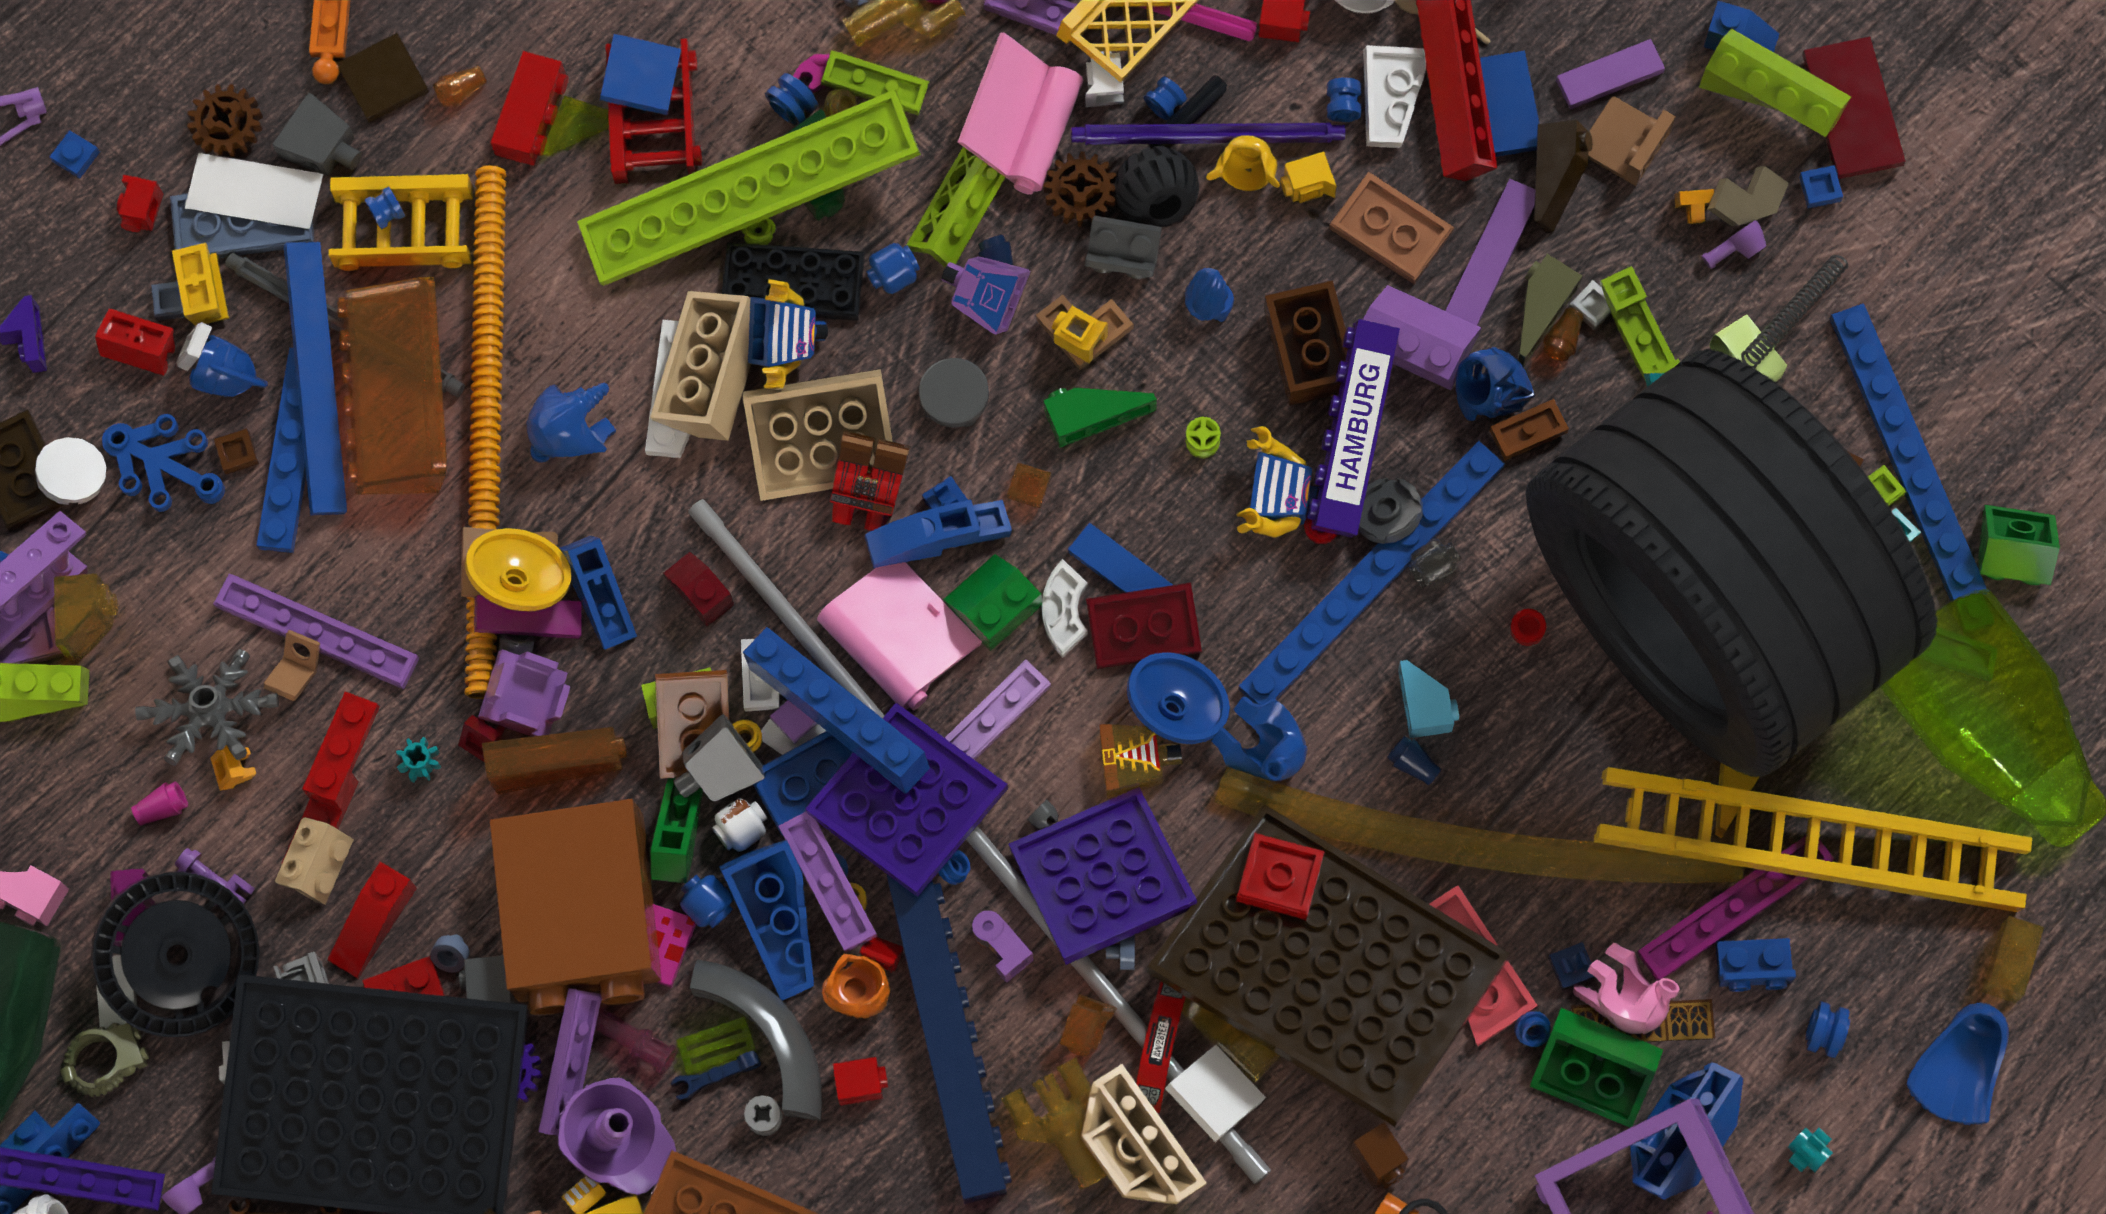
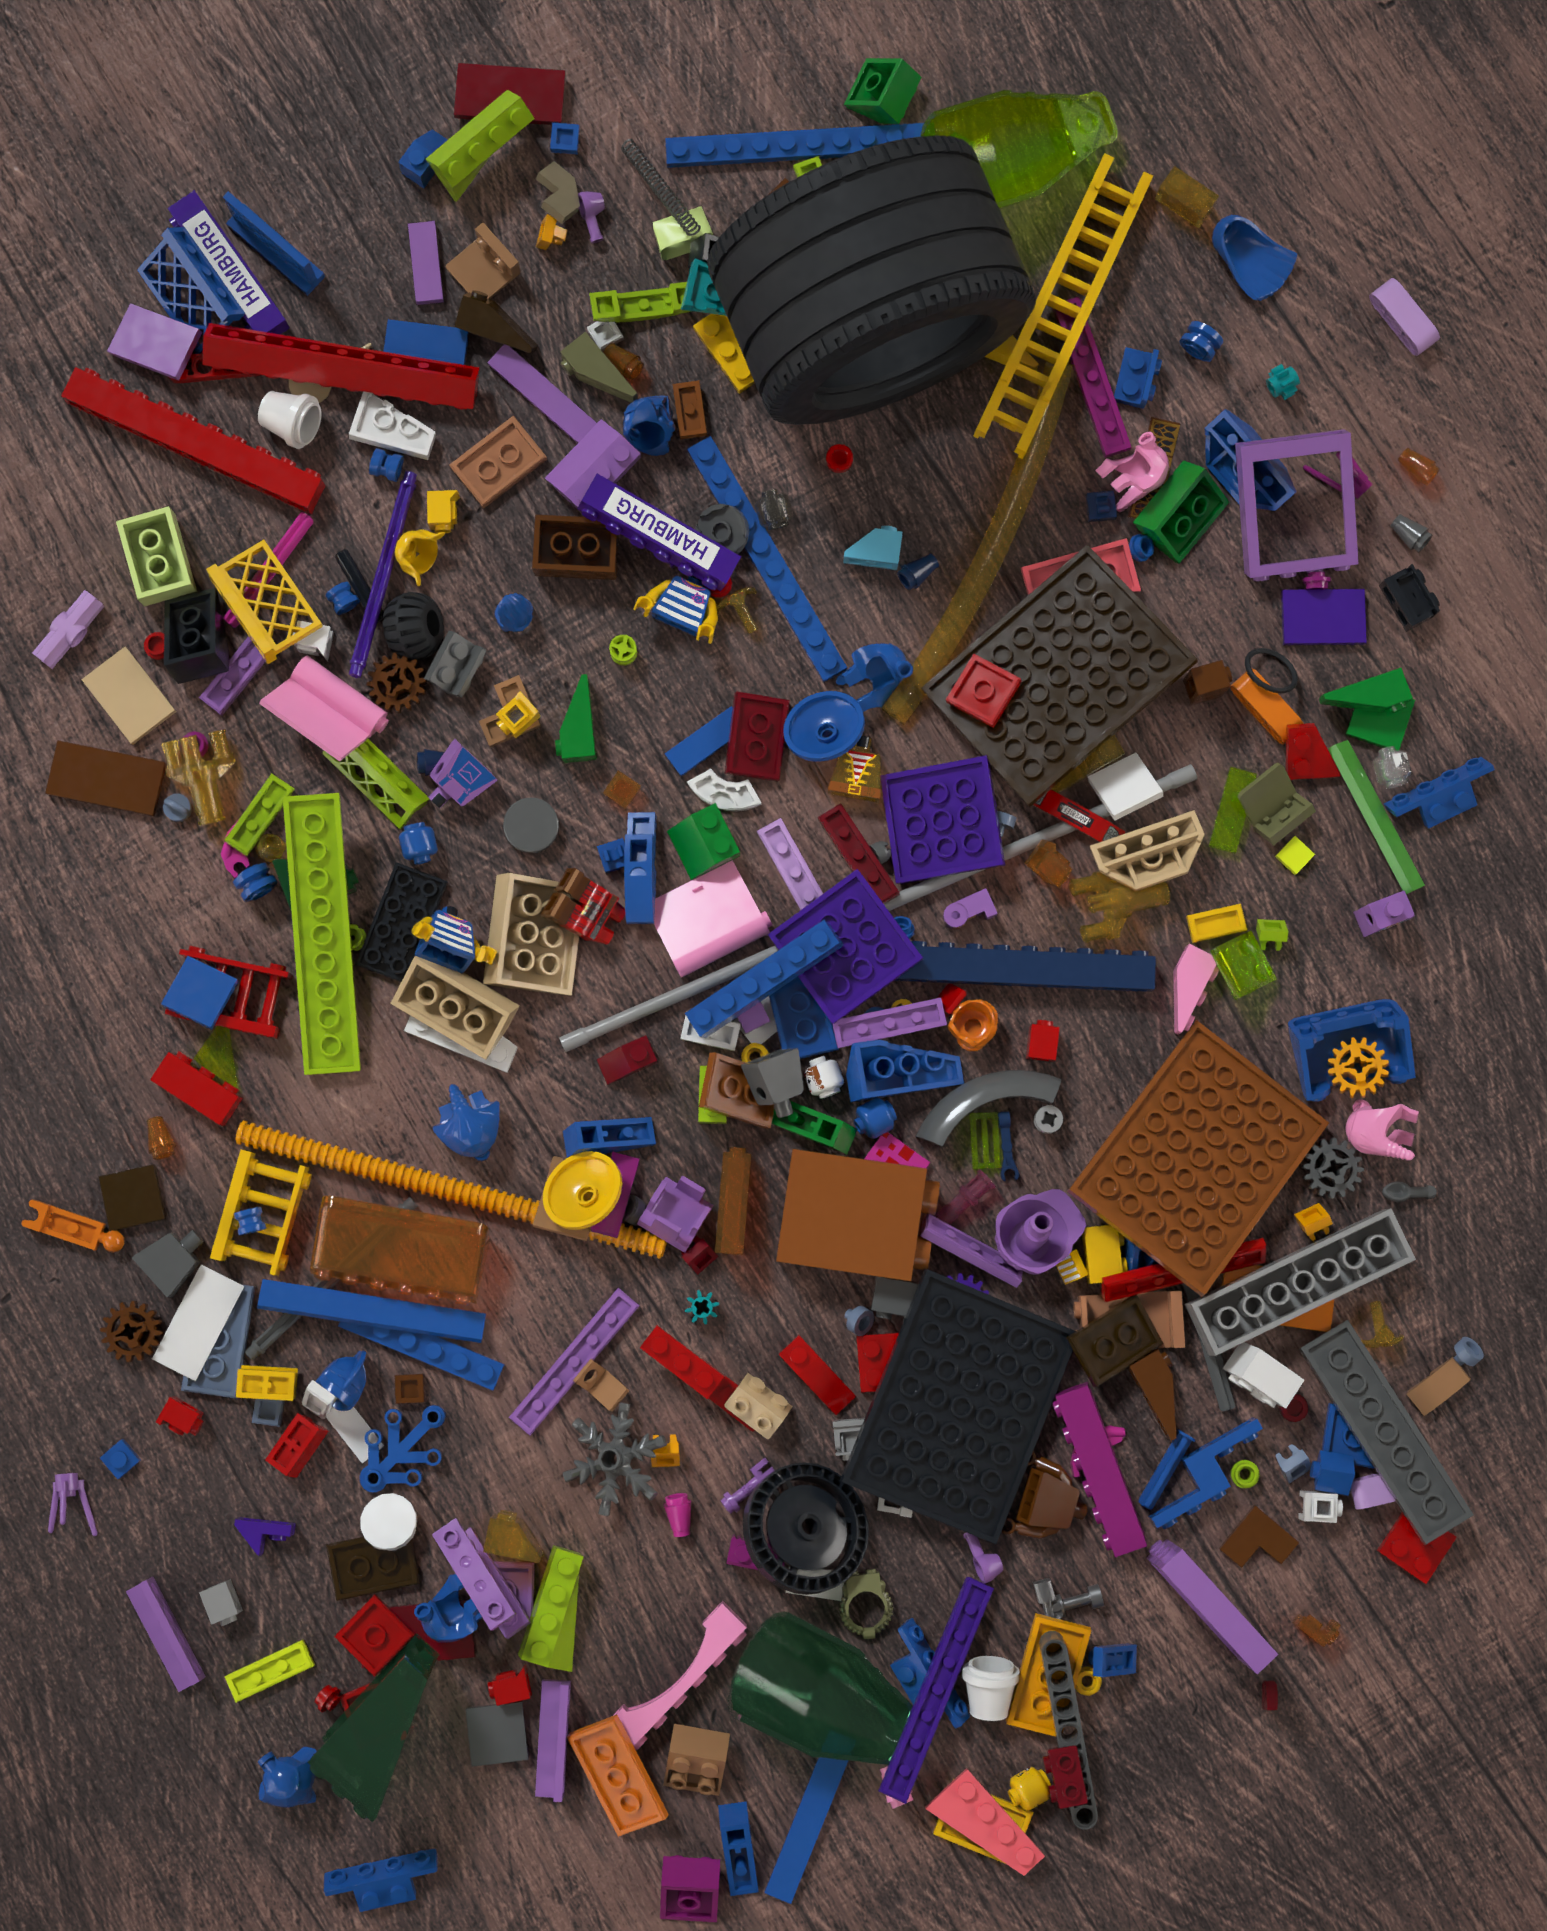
camera: 80 degrees left, 10 degrees up
(174, 400) = (353, 1430): none -> white sticker
(1032, 788) = (857, 851): none -> dark red tile
(1303, 552) = (737, 600): none -> clear yellow plant

